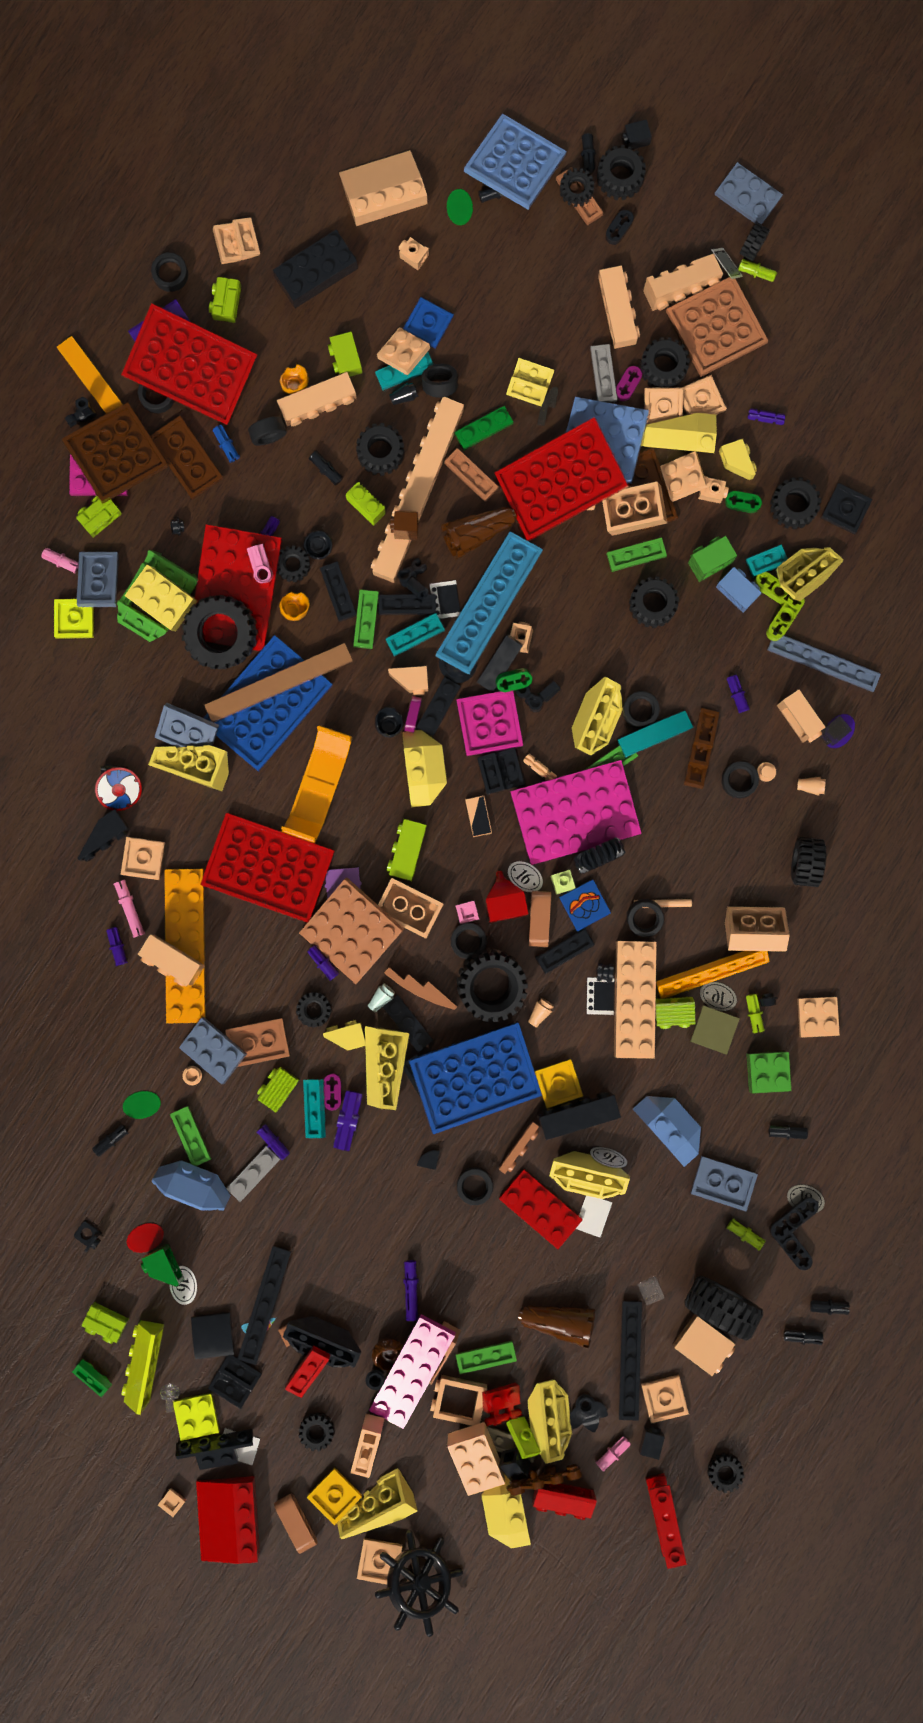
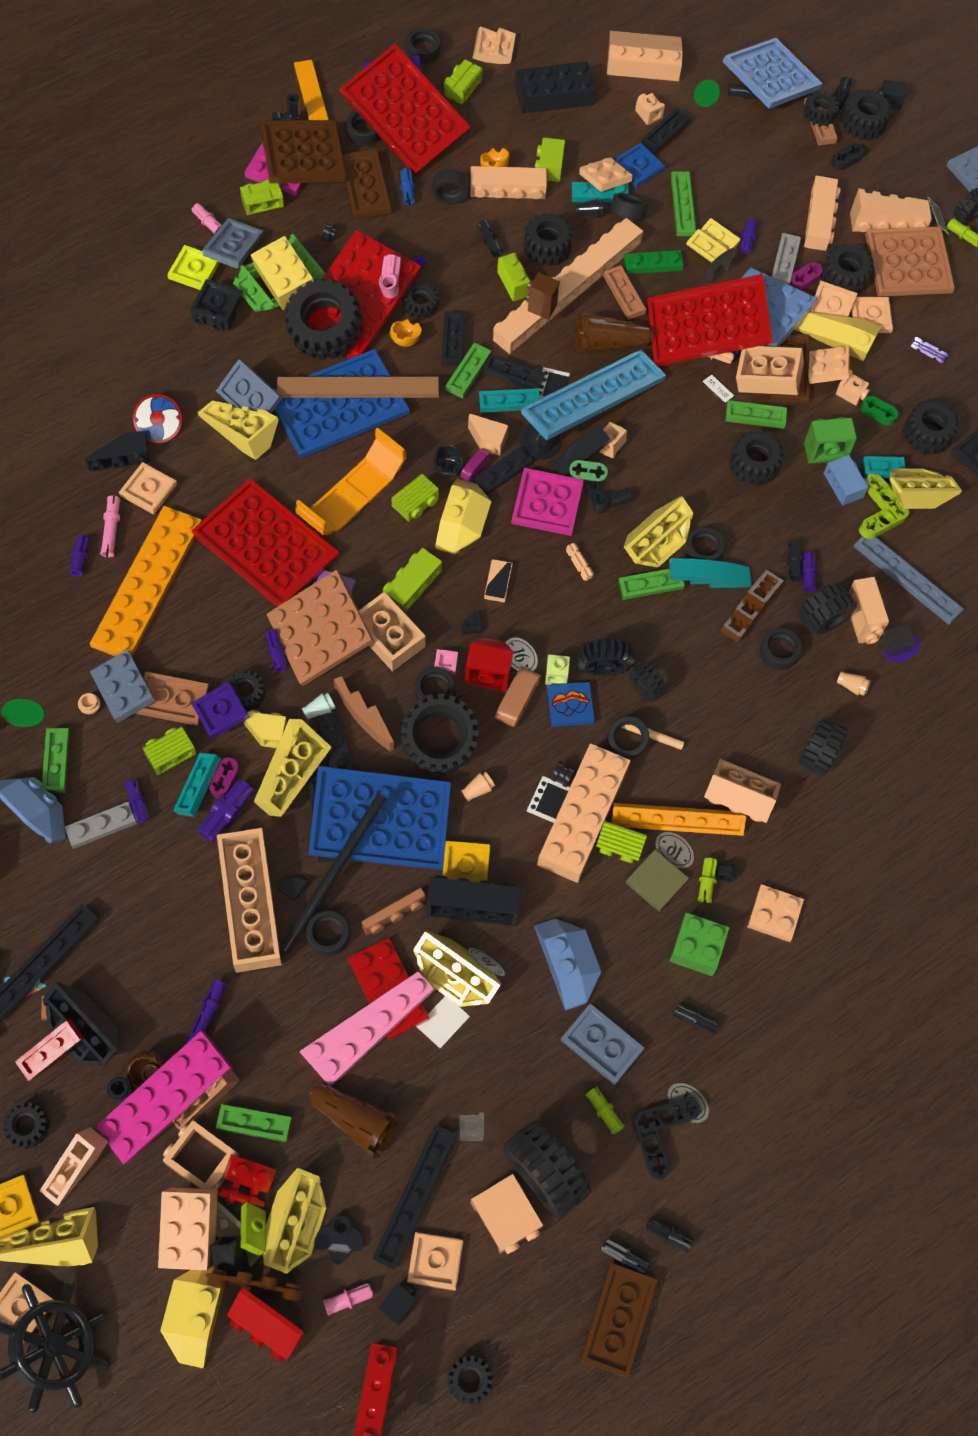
camera: 20 degrees right, 20 degrees down
(114, 651) = (216, 305): none -> black plate
(170, 961) = (125, 578): light nougat brick -> none
(304, 1040) = (220, 710): none -> dark purple tile
(318, 544) = (453, 292): black hair -> none
(375, 769) = (415, 498): none -> lime brick
(402, 1188) = (249, 900): none -> light nougat brick
(408, 579) = (527, 350): black bar -> none
(439, 272) = (666, 130): none -> black plate
(459, 1139) = (333, 873): none -> black piece
(473, 866) = (472, 624): none -> black tile
(486, 349) = (683, 203): none -> bright green tile
(501, 771) = (540, 549): black slope -> none
(532, 1262) = (352, 1039): none -> bright pink wing
(560, 362) = (748, 236): none -> dark purple axle
(565, 951) = (530, 740): black tile -> none
(575, 812) = (593, 605): dark pink plate -> none
(592, 538) = (718, 388): none -> white sticker
(642, 862) = (648, 681): none -> black tyre
(722, 688) = (794, 560): none -> black pin
(737, 460) = (886, 372): light yellow slope -> none
(766, 771) = (811, 652): light nougat plate -> none
(768, 731) = (827, 609): none -> black tyre
(816, 1385) = (619, 1320): none -> reddish brown plate

